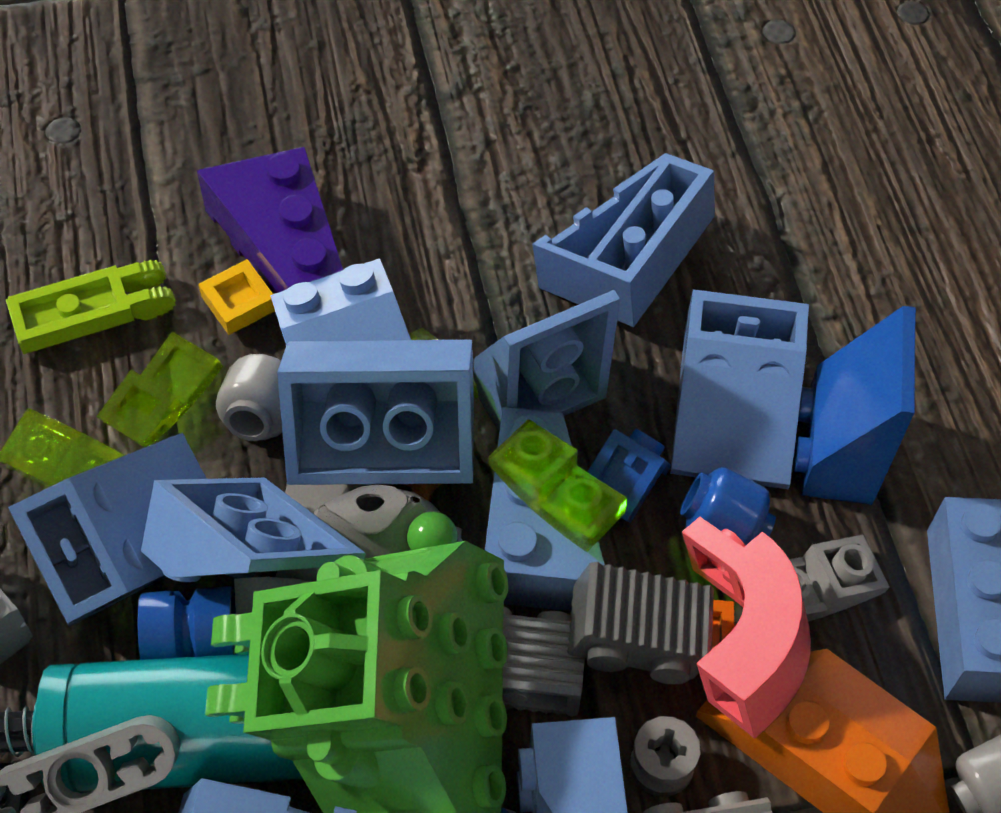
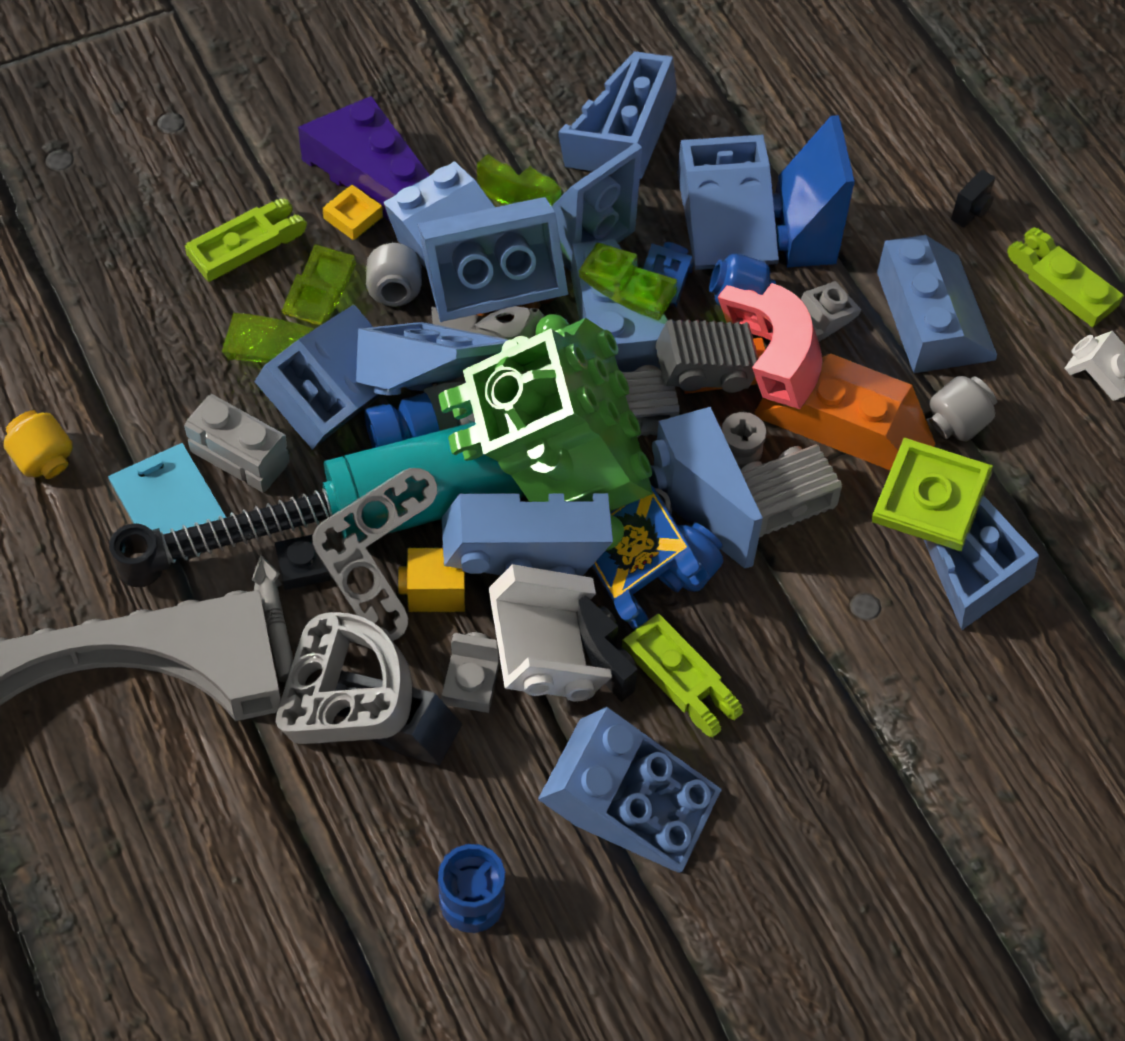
camera: 15 degrees left, 0 degrees up
(467, 314) = (506, 187): none -> clear neon green slope

